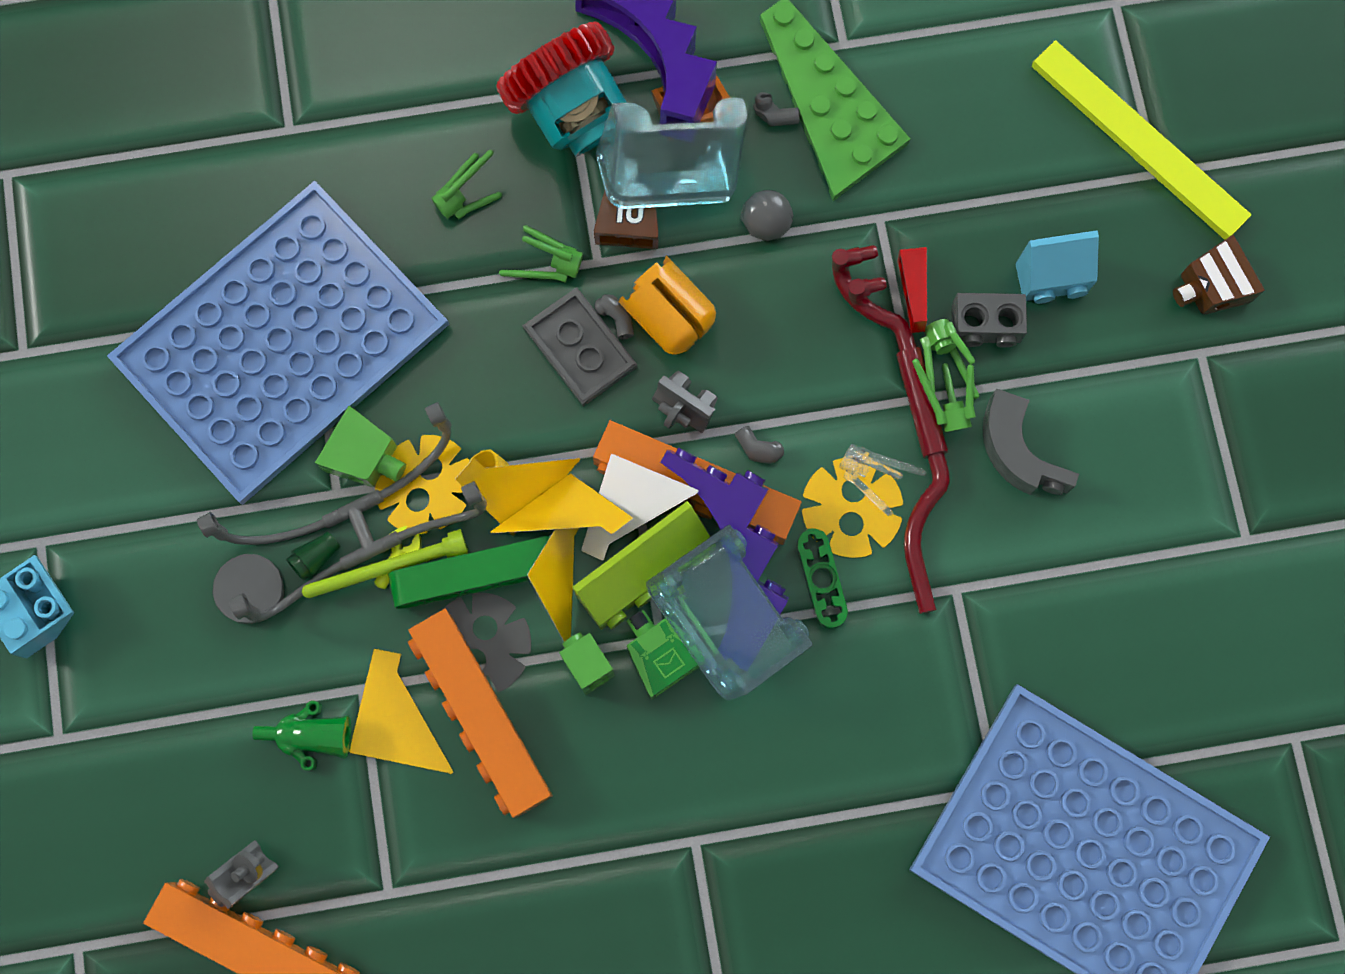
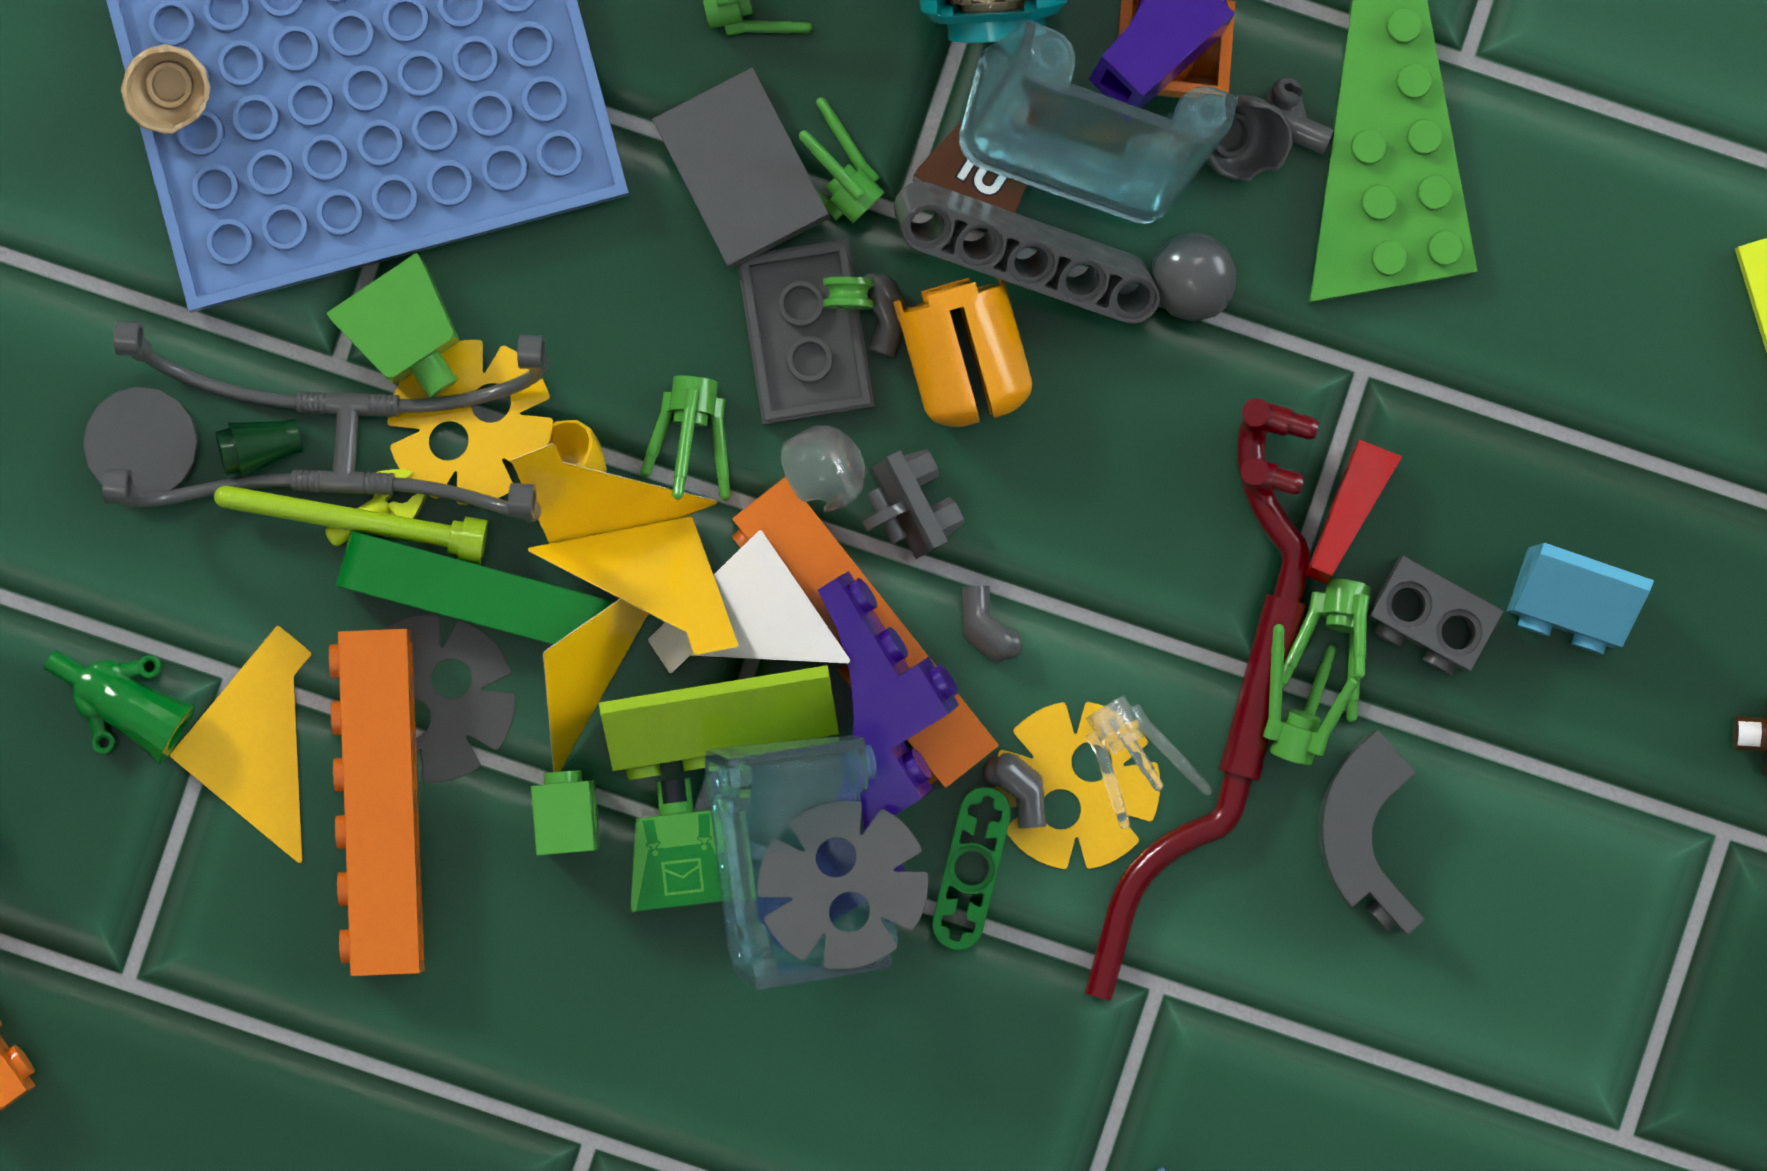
camera: 25 degrees right, 10 degrees up
(166, 387) = (165, 88): none -> tan hair
(501, 279) = (741, 168): none -> dark grey tile
(540, 413) = (692, 403): none -> bright green plant
(592, 310) = (848, 293): none -> bright green bush
(628, 404) = (824, 466): none -> clear hair
(660, 238) = (1011, 233): none -> dark grey beam
(751, 642) = (890, 894): none -> dark grey piece
(762, 130) = (1255, 142): none -> dark grey hair
(826, 519) = (1021, 782): none -> dark grey arm

